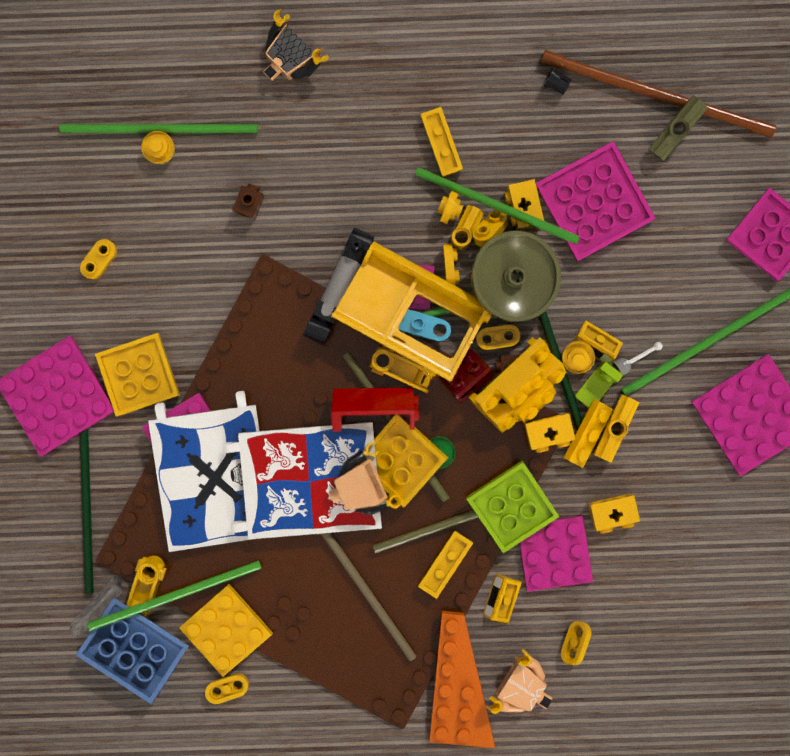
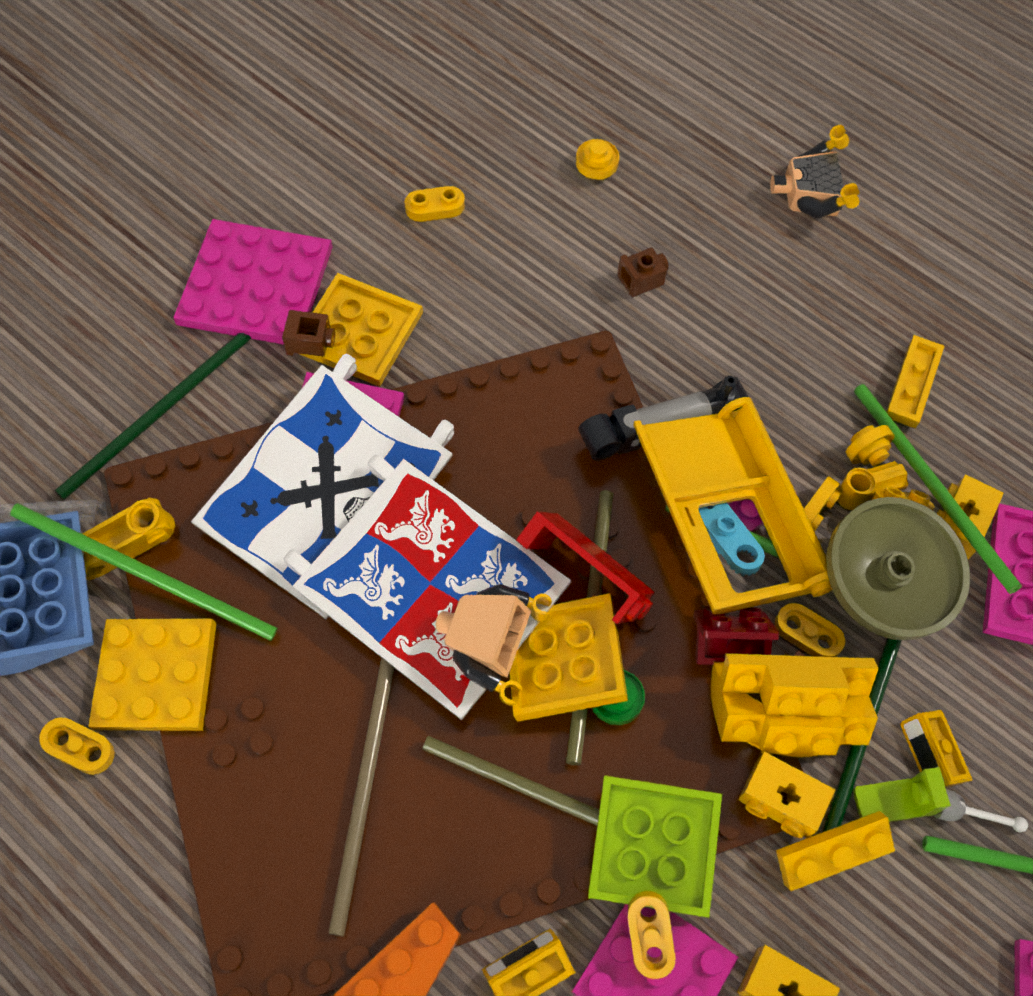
camera: 40 degrees right, 25 degrees down
(114, 407) = (307, 333): none -> reddish brown brick
(166, 128) = (624, 155): bright green piece -> none
(402, 369) = (659, 563): yellow piece -> none
(445, 564) = (497, 844): yellow plate -> none
(540, 544) = (649, 933): none -> yellow plate
(578, 357) = (899, 741): yellow plate -> none
(623, 415) = (859, 885): yellow piece -> none

